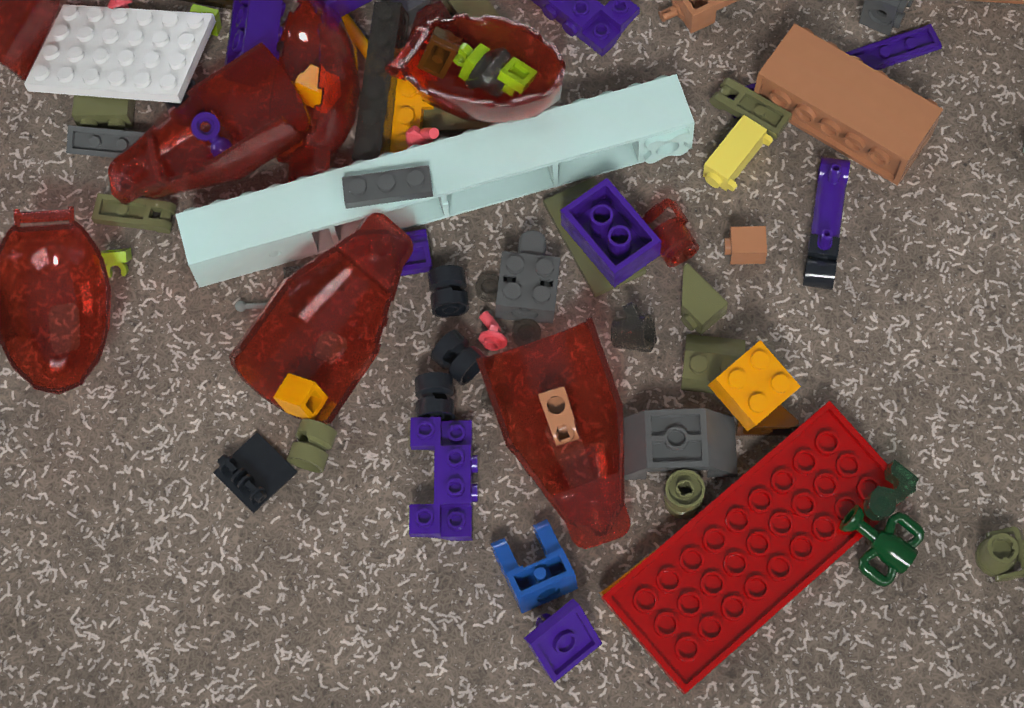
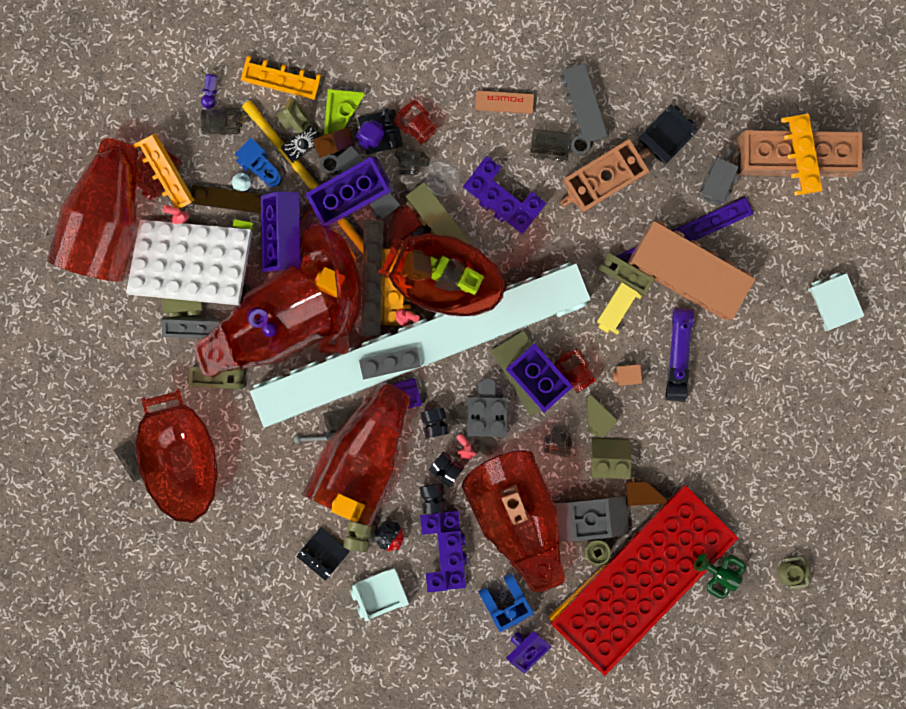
camera: 15 degrees left, 20 degrees up
(118, 258) = (209, 412): lime tile -> none
(334, 538) = (379, 594): none -> light aqua panel
(361, 449) = (389, 536): none -> black piece
(754, 385) = (638, 484): light orange brick -> none
(883, 500) = (720, 549): clear green leg -> none

